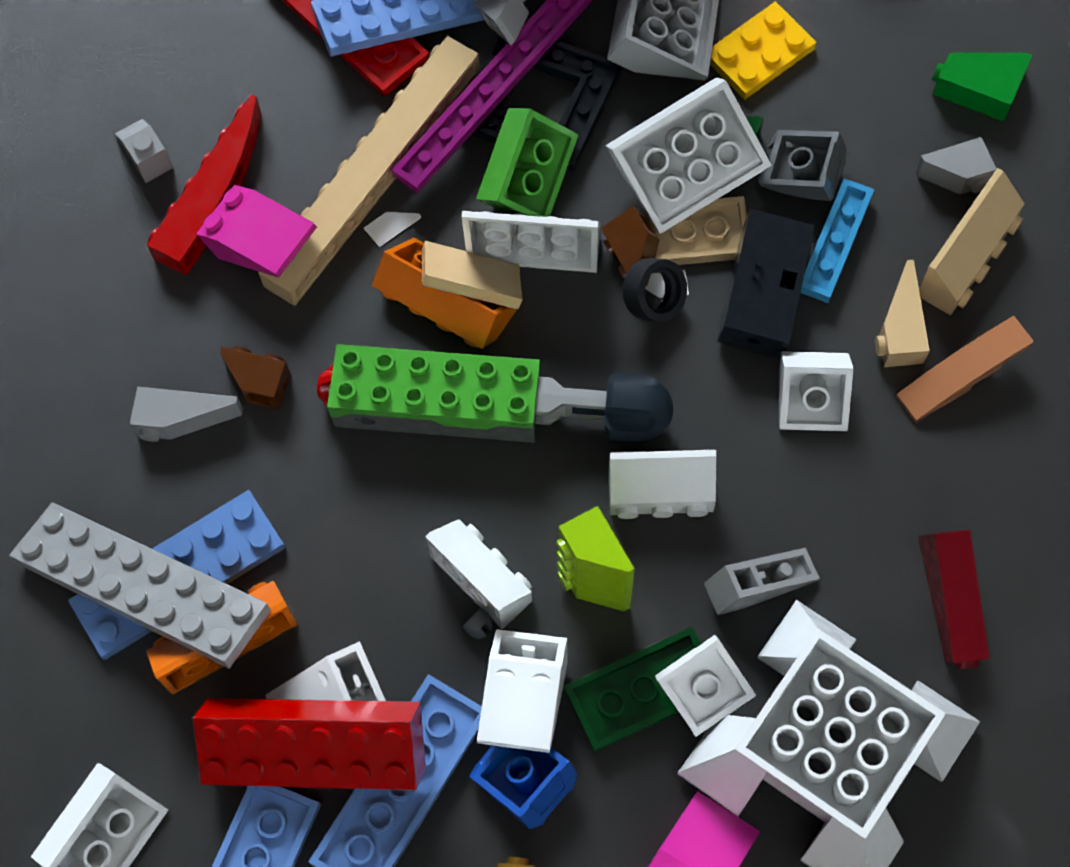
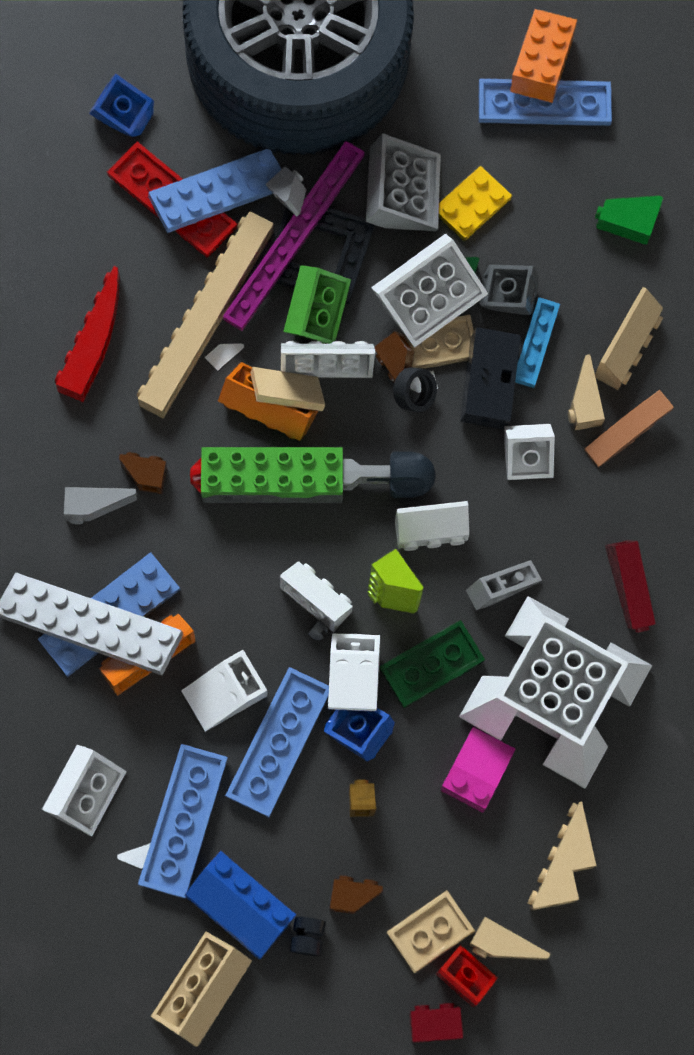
camera: 15 degrees left, 5 degrees up
(144, 150) = (39, 310): light grey slope -> none
(255, 231) = (132, 369): dark pink slope -> none
(310, 743) = (219, 719): red brick -> none
(705, 685) = (473, 658): white hinge -> none
(958, 167) = (617, 283): light grey slope -> none

